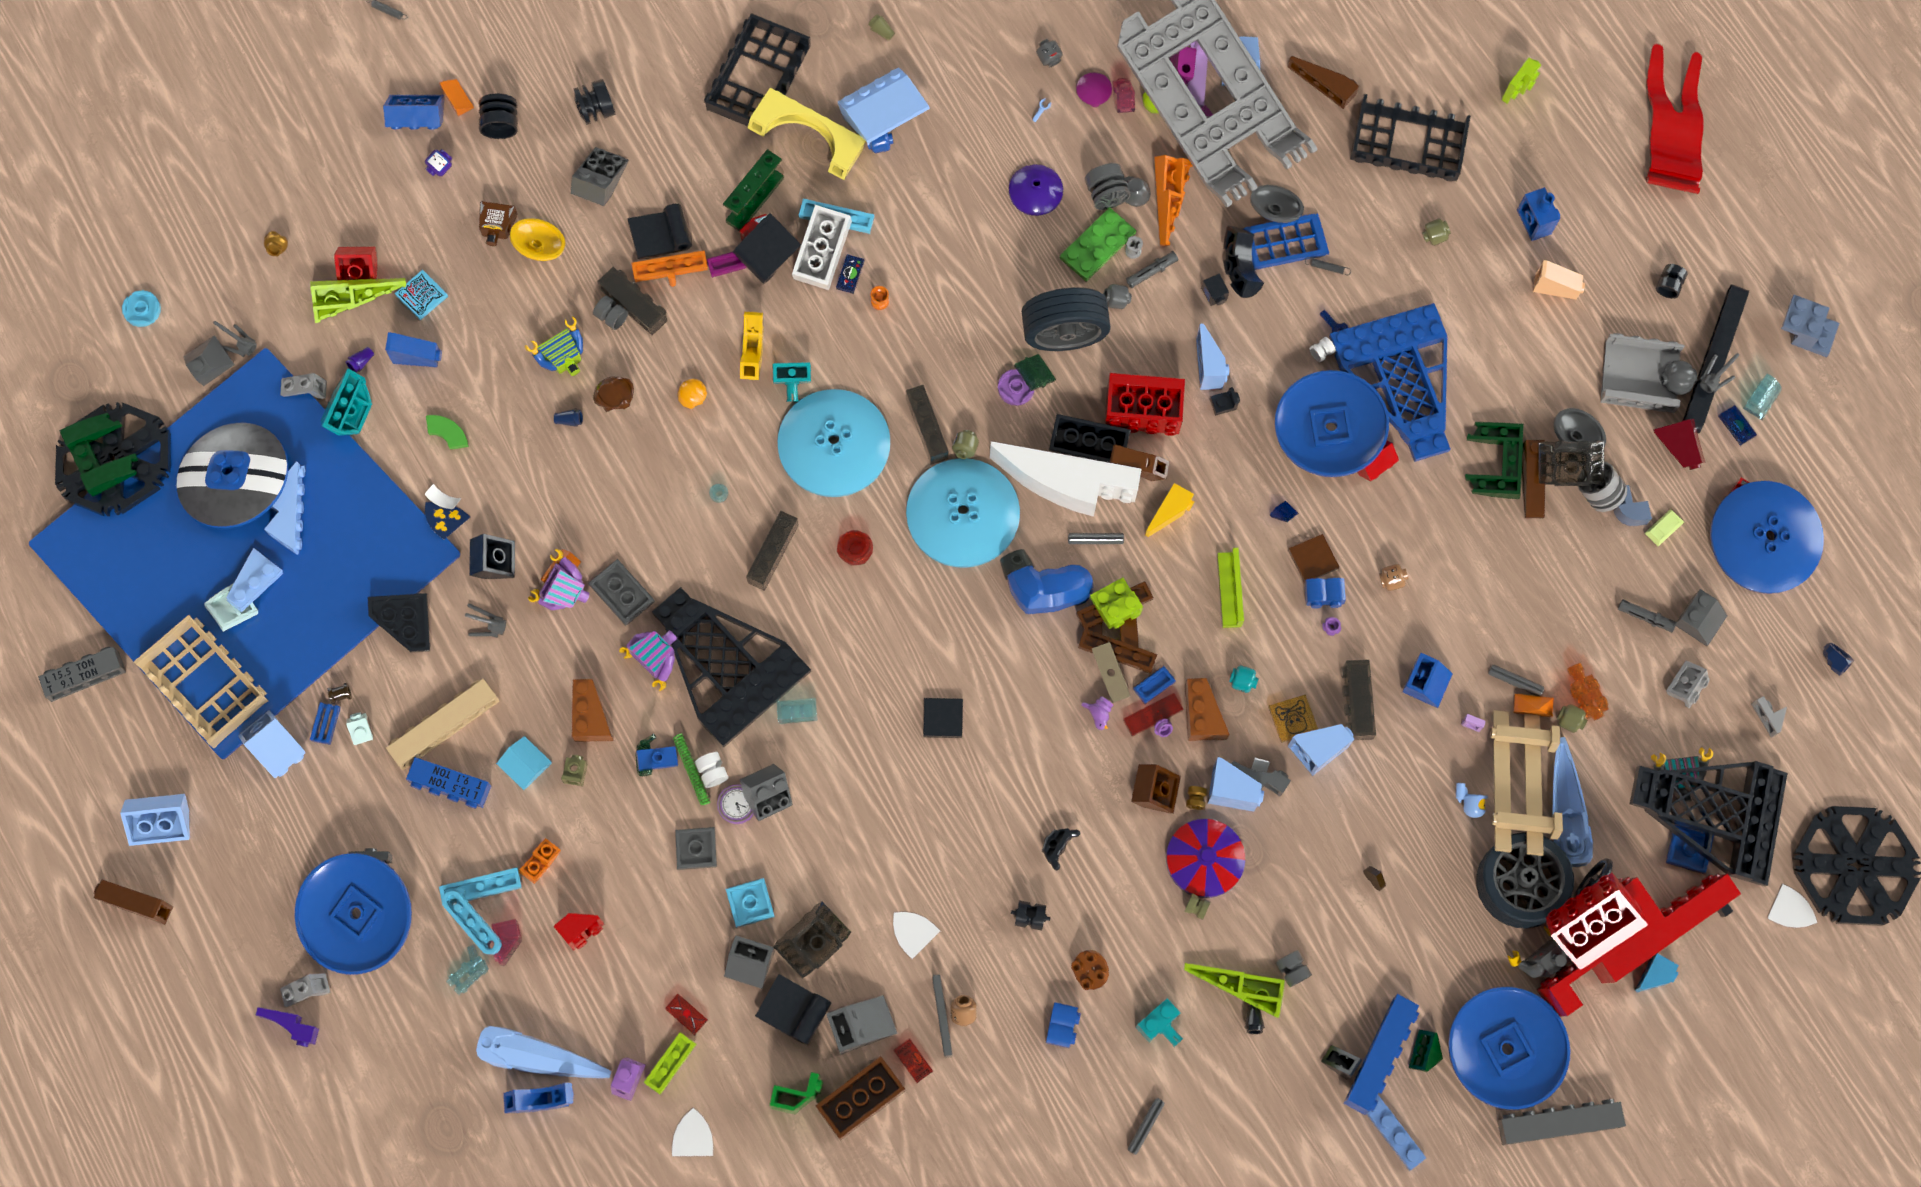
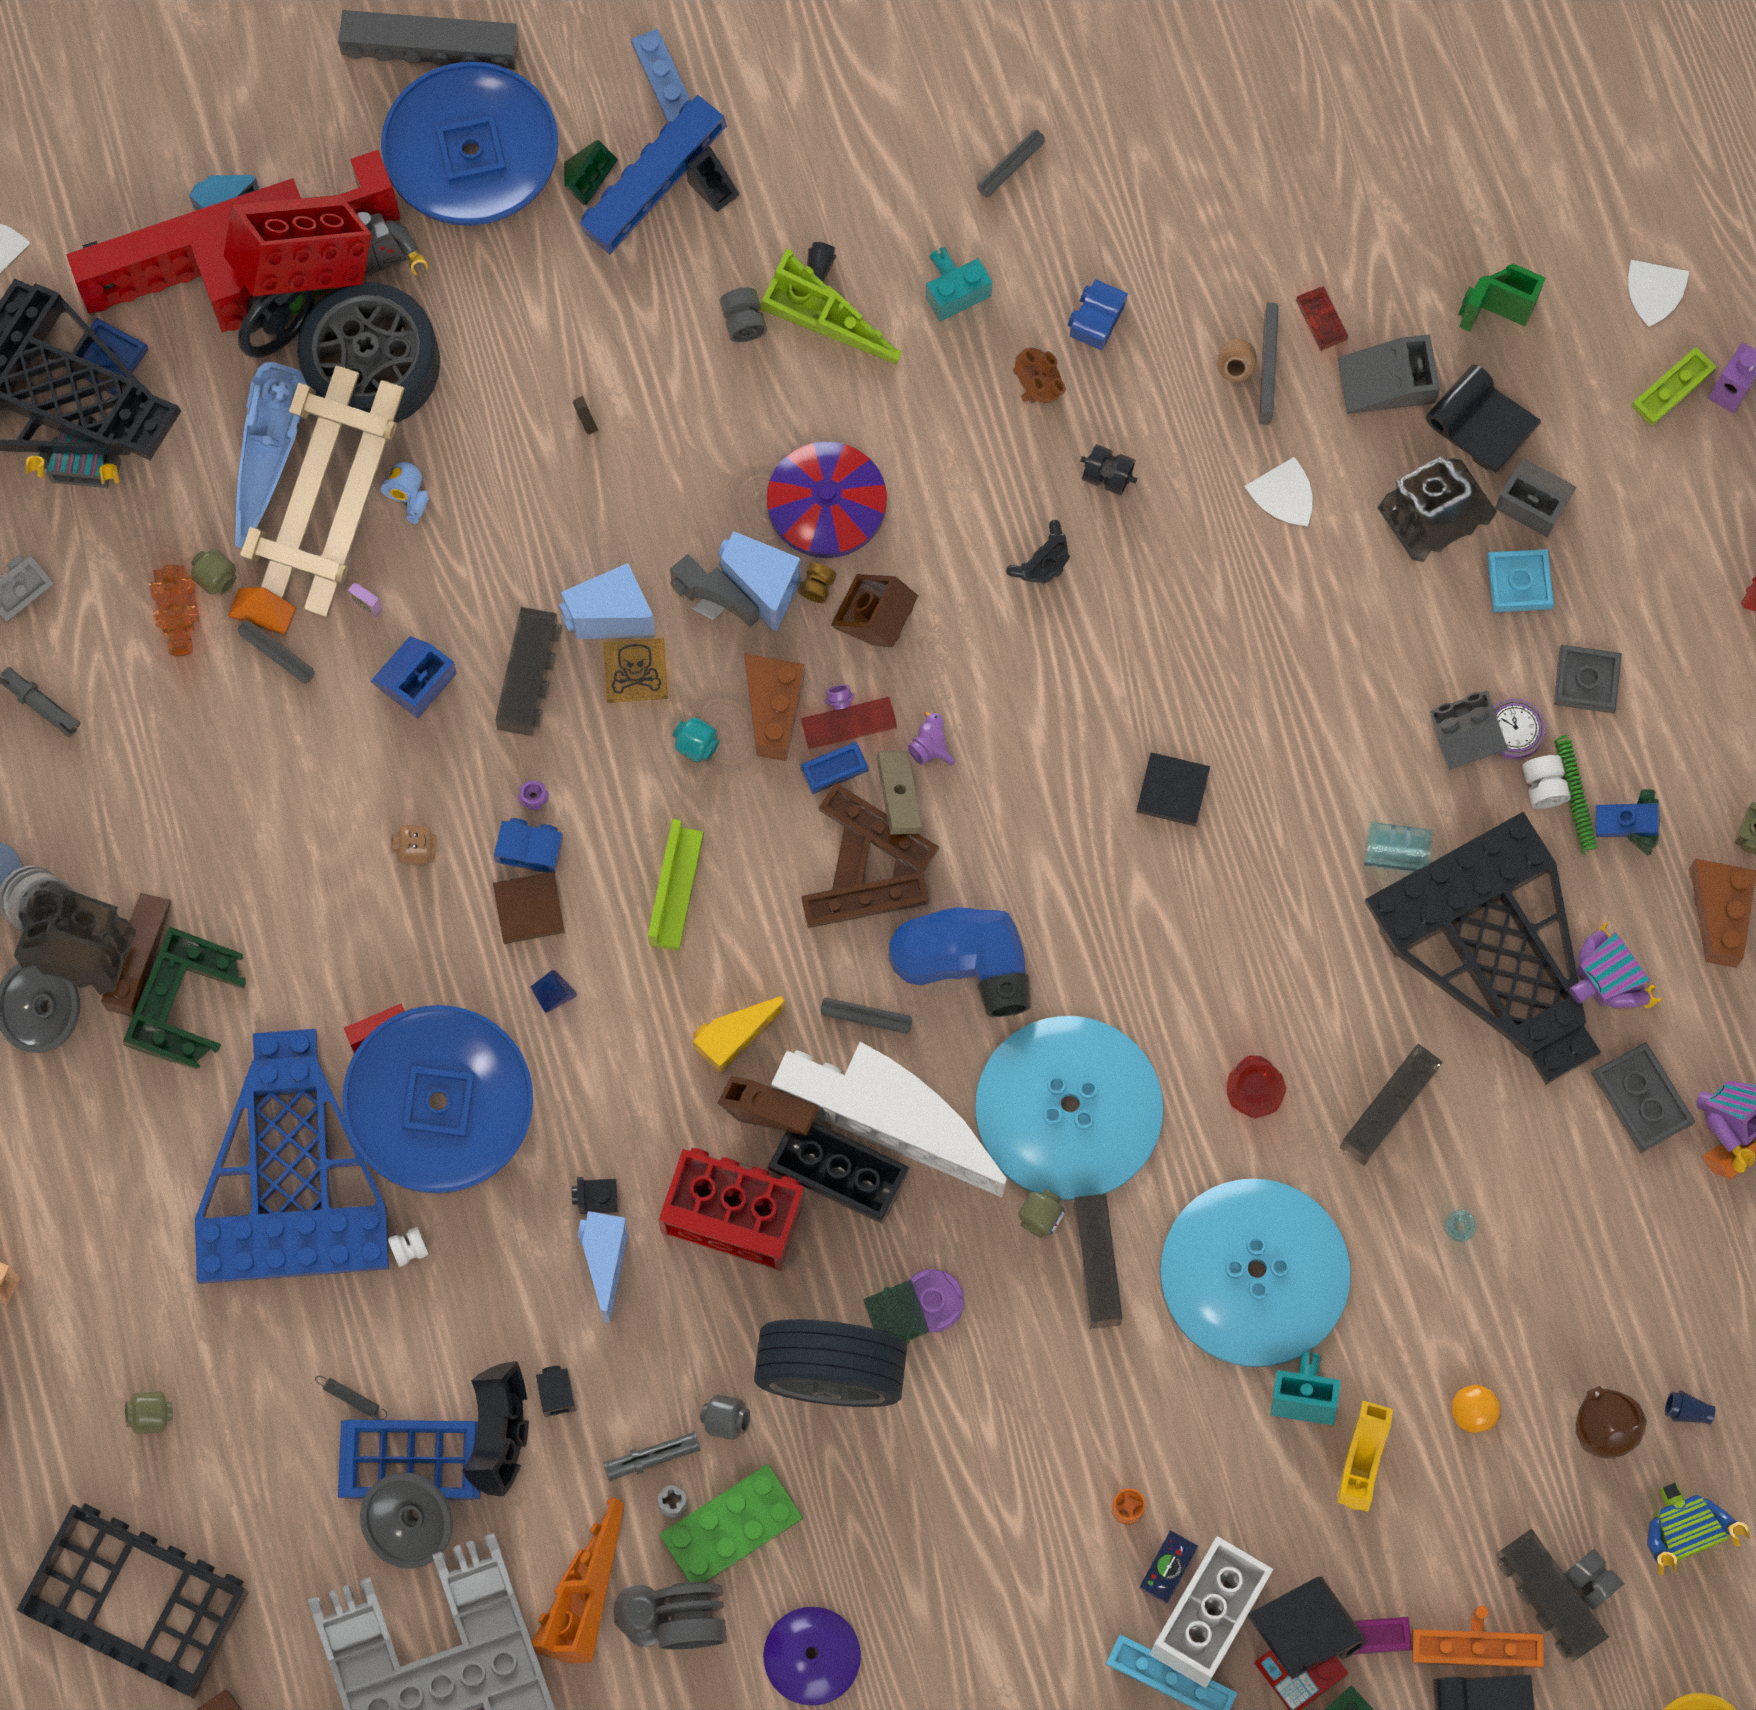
camera: 165 degrees left, 0 degrees up
(686, 1014) = (1639, 449): clear red tile -> none
(860, 1098) = (1409, 276): reddish brown brick -> none
(1116, 603) = (863, 893): lime plate -> none
(1197, 906) = (858, 431): olive wheel -> none
(1332, 323) = (374, 1292): clear blue bar -> none

